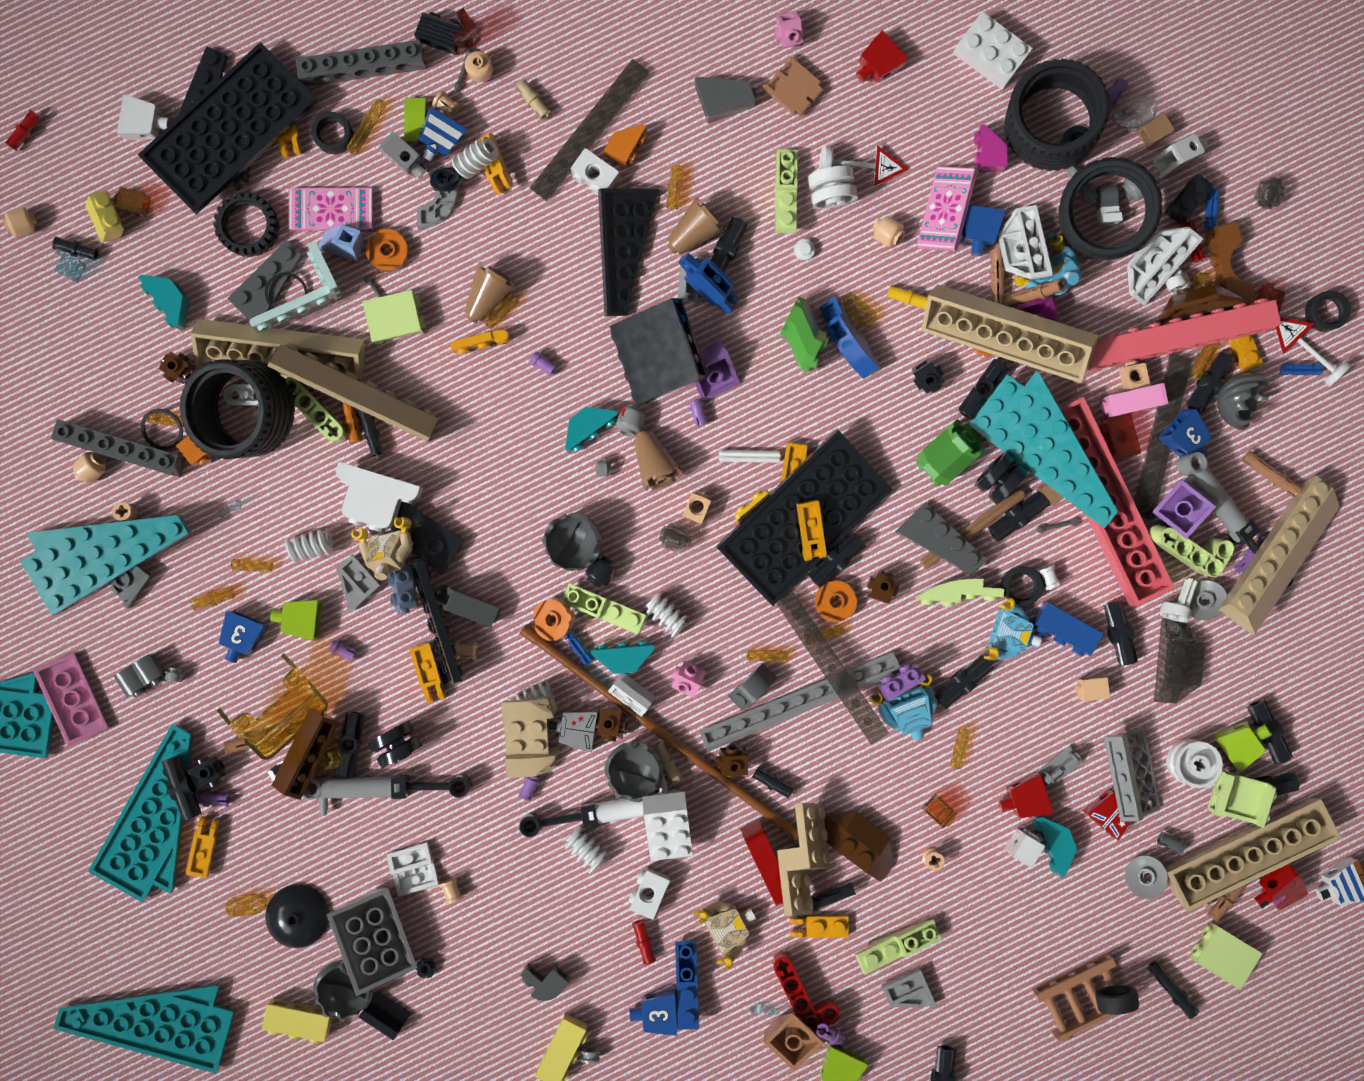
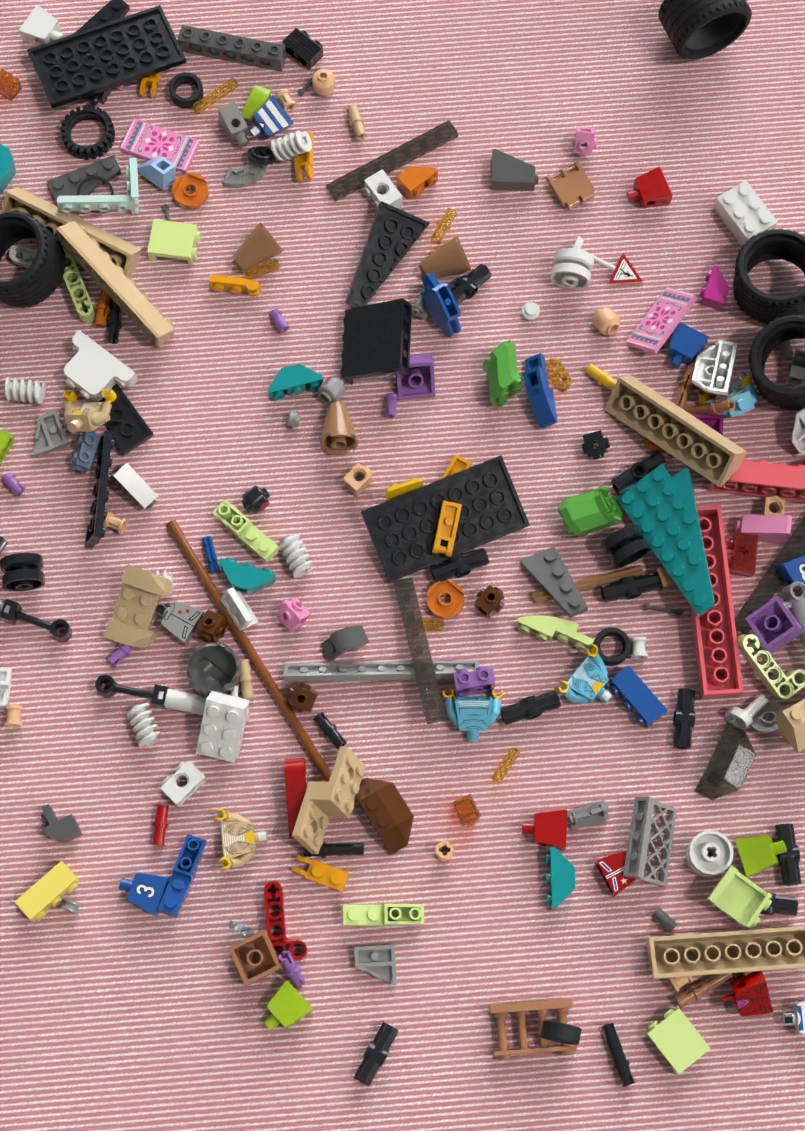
camera: 20 degrees right, 15 degrees down
(427, 671) = (75, 527): light orange hinge -> none
(468, 35) = (323, 55): clear red panel -> none
(563, 615) = (207, 526): orange plate -> none
(572, 541) = (242, 464): dark grey piece -> none
(675, 537) = (330, 496): clear smoke head -> none
(749, 456) = (419, 455): white axle -> none
(767, 655) = (368, 623): clear yellow axle -> none
(786, 191) = (533, 260): yellowish green slope -> none
(1024, 847) = (529, 867): white brick -> none
(1092, 688) = (641, 756): light nougat brick -> none
(1136, 877) = (625, 935): light grey dish -> none

